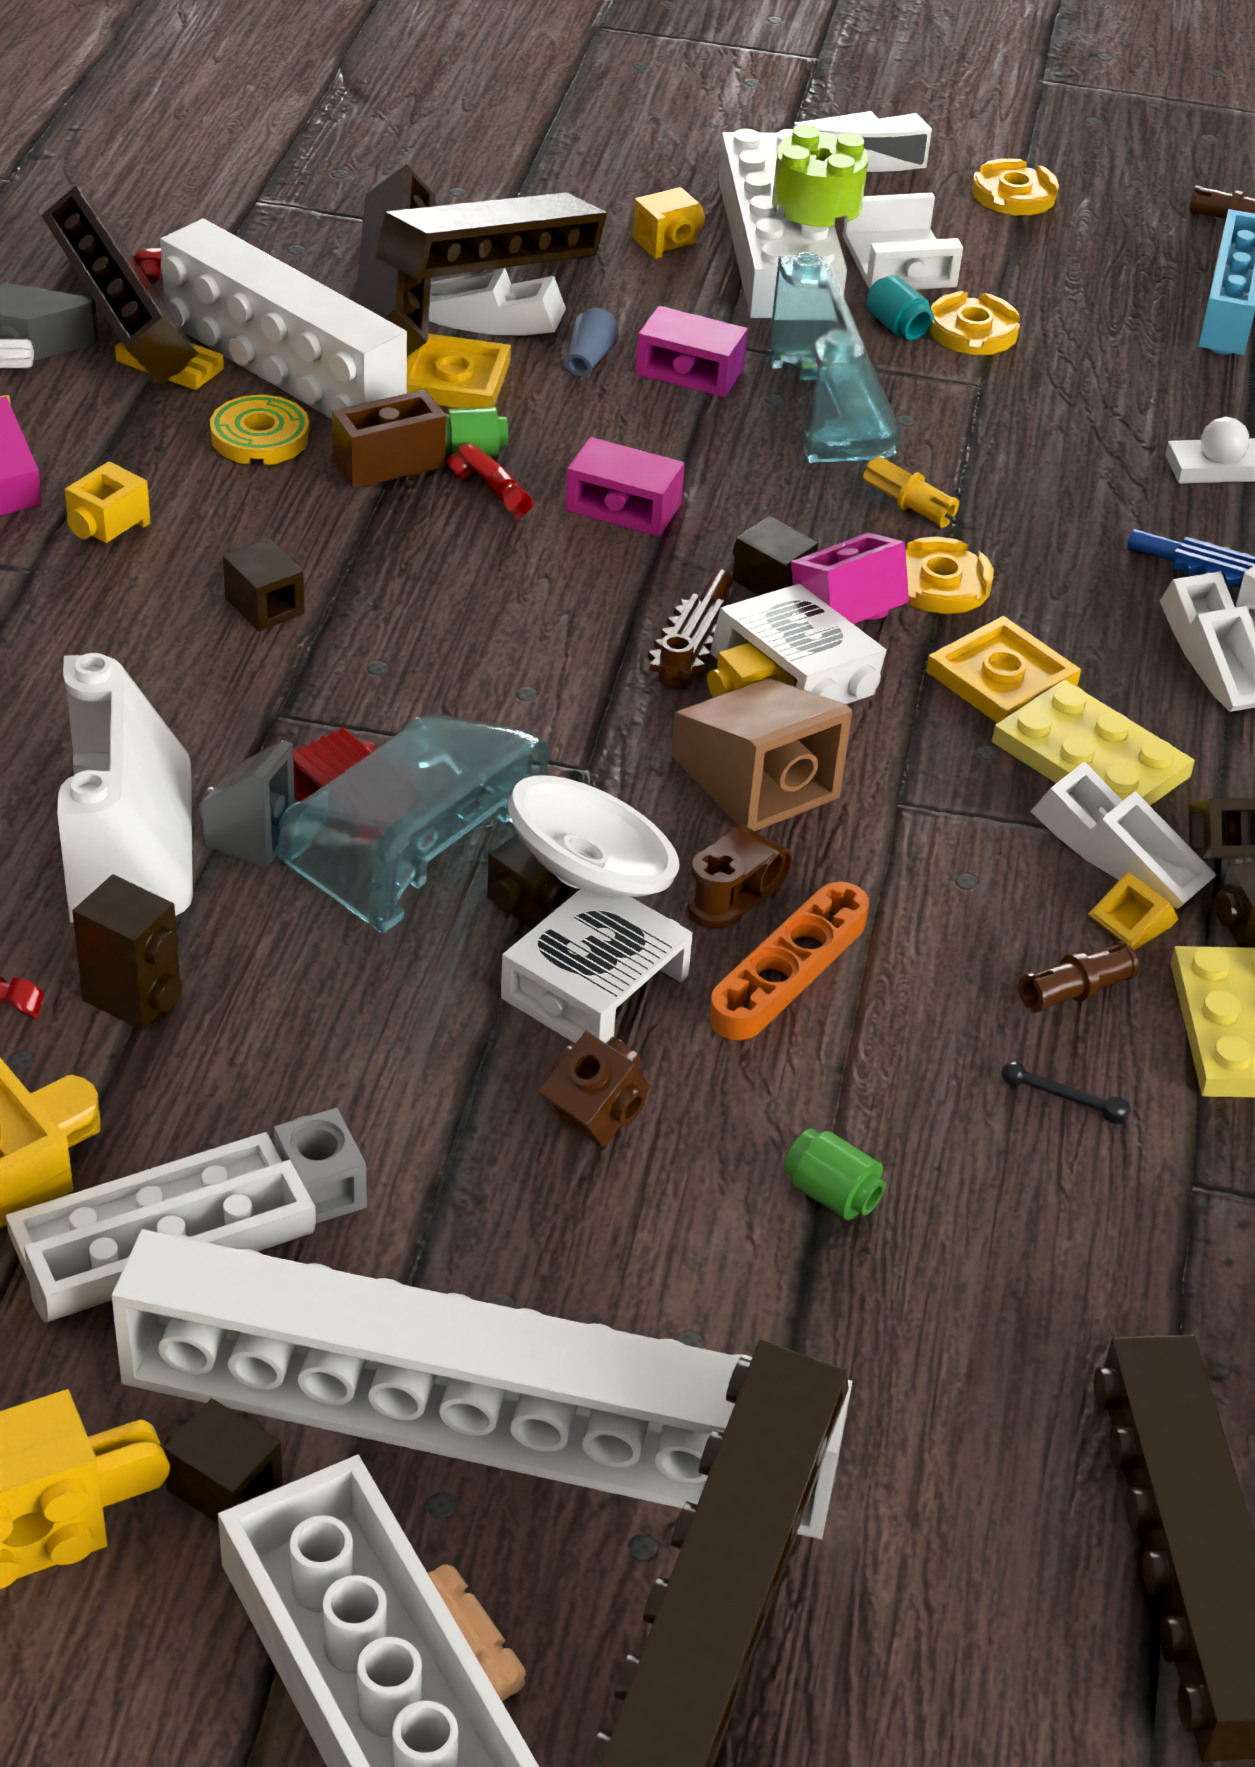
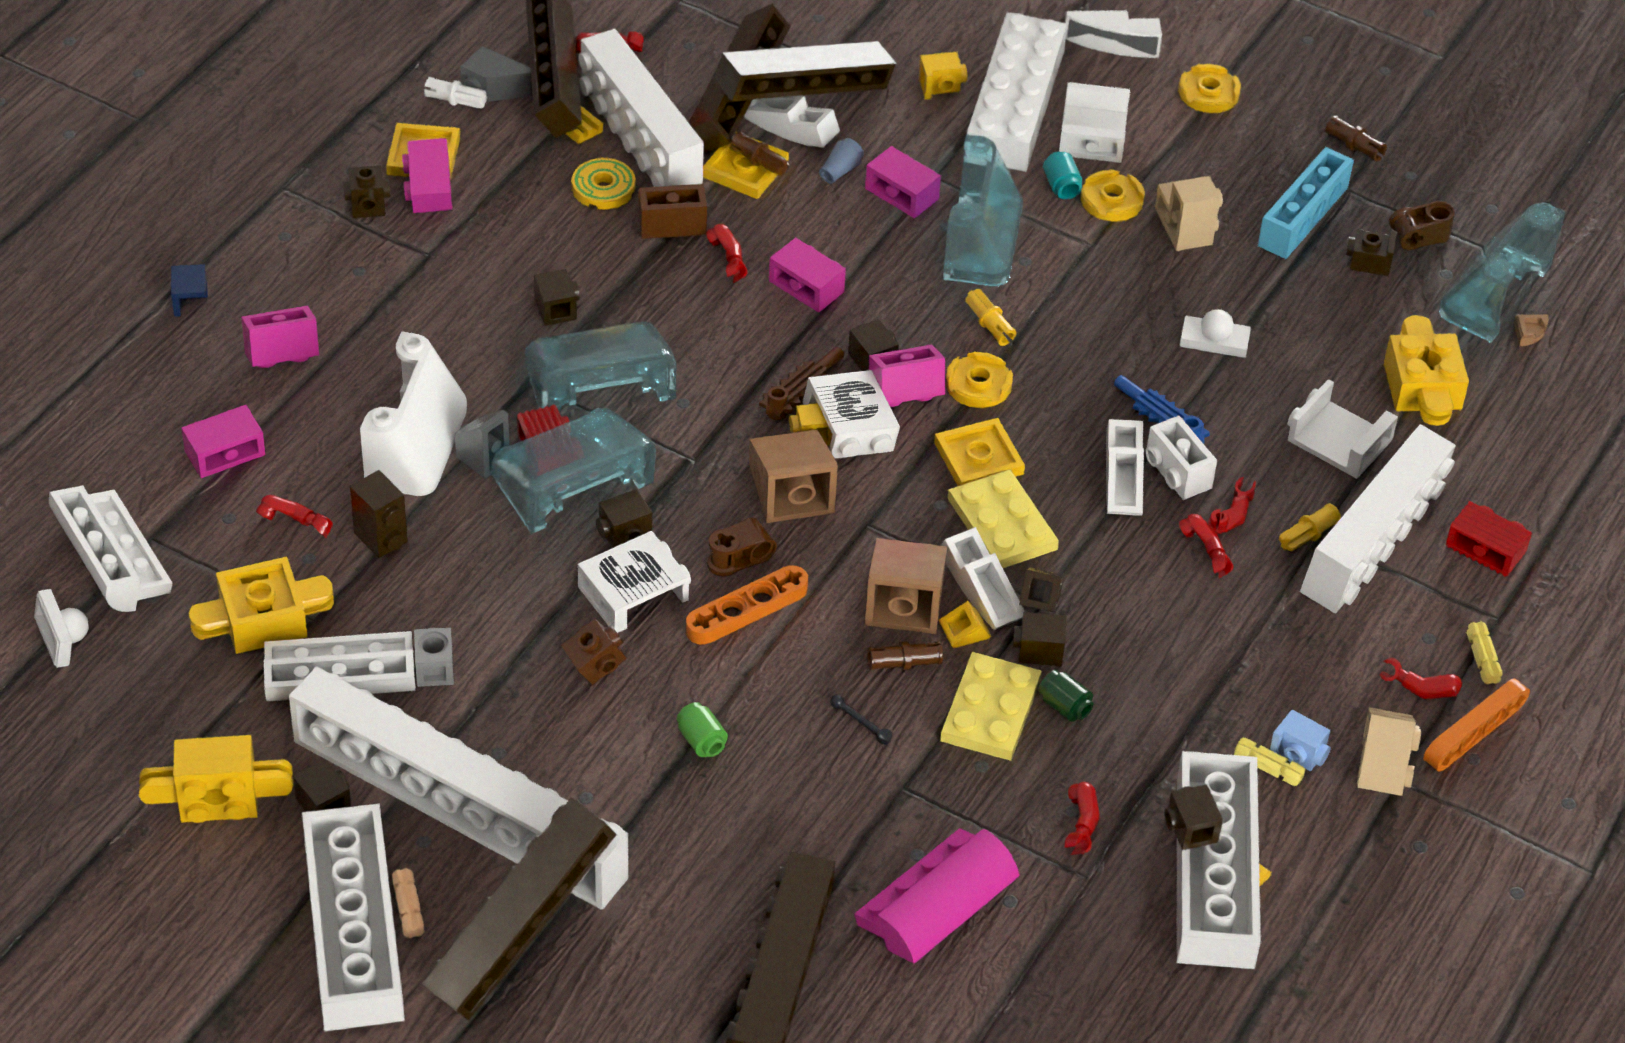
camera: 20 degrees right, 5 degrees up
(107, 503) = (485, 221): yellow brick -> none
(341, 665) = (598, 360): none -> clear light blue windscreen
(476, 349) = (759, 153): none -> reddish brown axle
(478, 427) = (732, 213): bright green brick -> none
(591, 838) = (651, 507): white dish -> none
(820, 176) = (1037, 71): lime brick -> none
(1027, 871) = (905, 585): none -> medium nougat slope
(1097, 314) = (1189, 211): none -> tan brick

